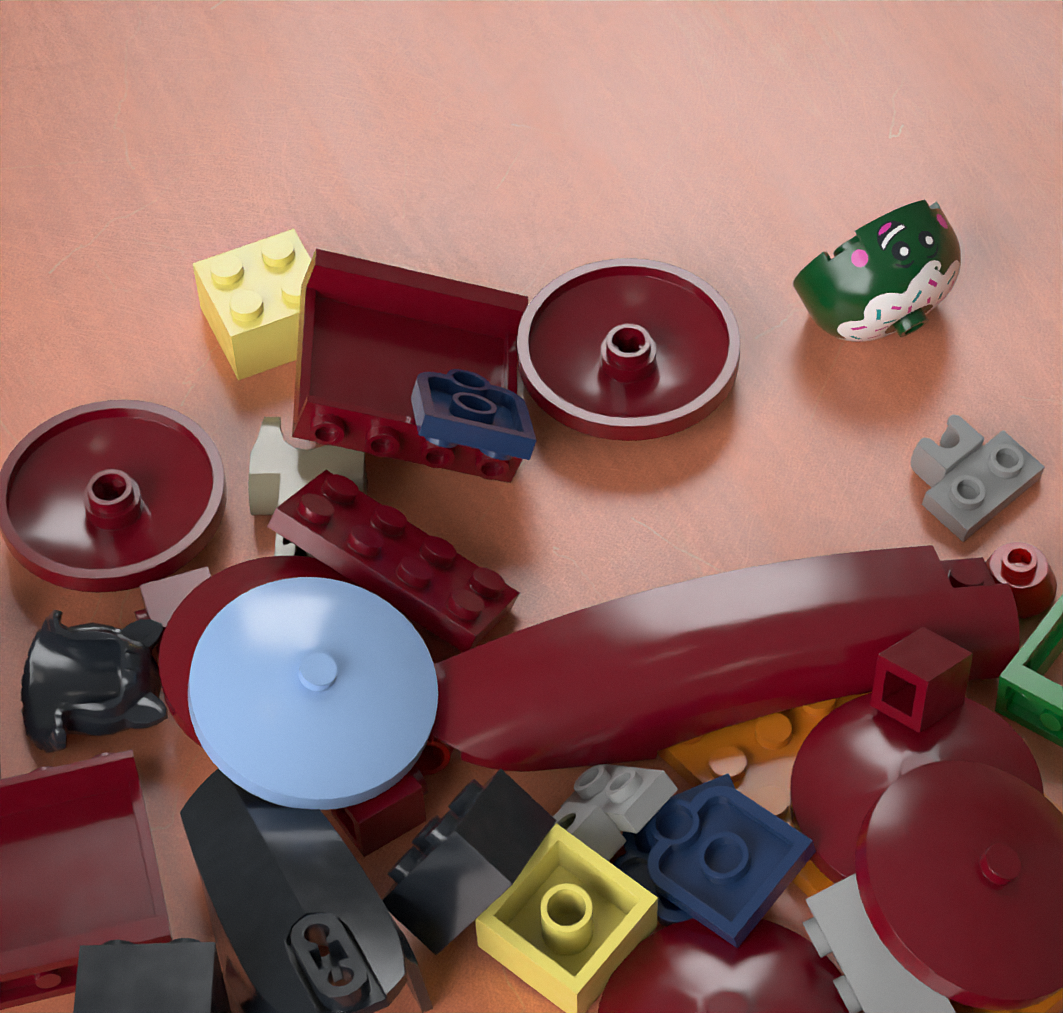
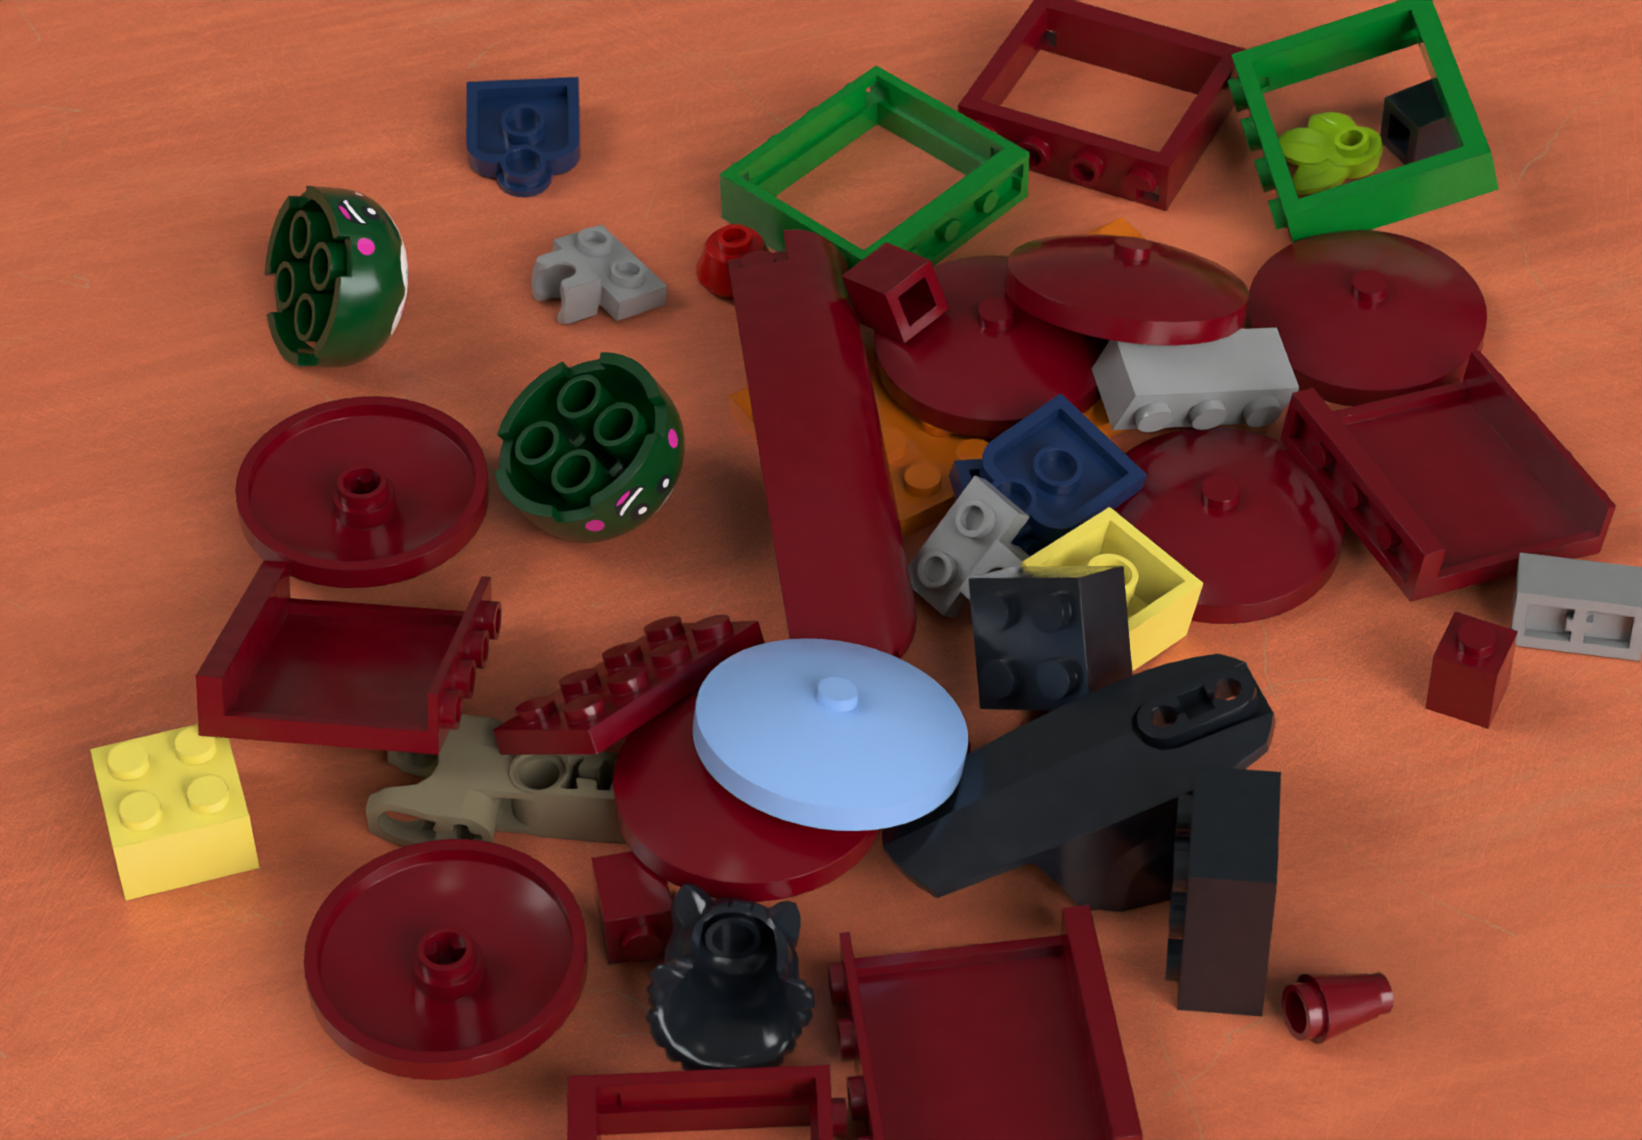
camera: 85 degrees left, 5 degrees down
(472, 413) = (452, 595): dark blue plate -> none
(680, 489) = (591, 449): none -> dark green cylinder

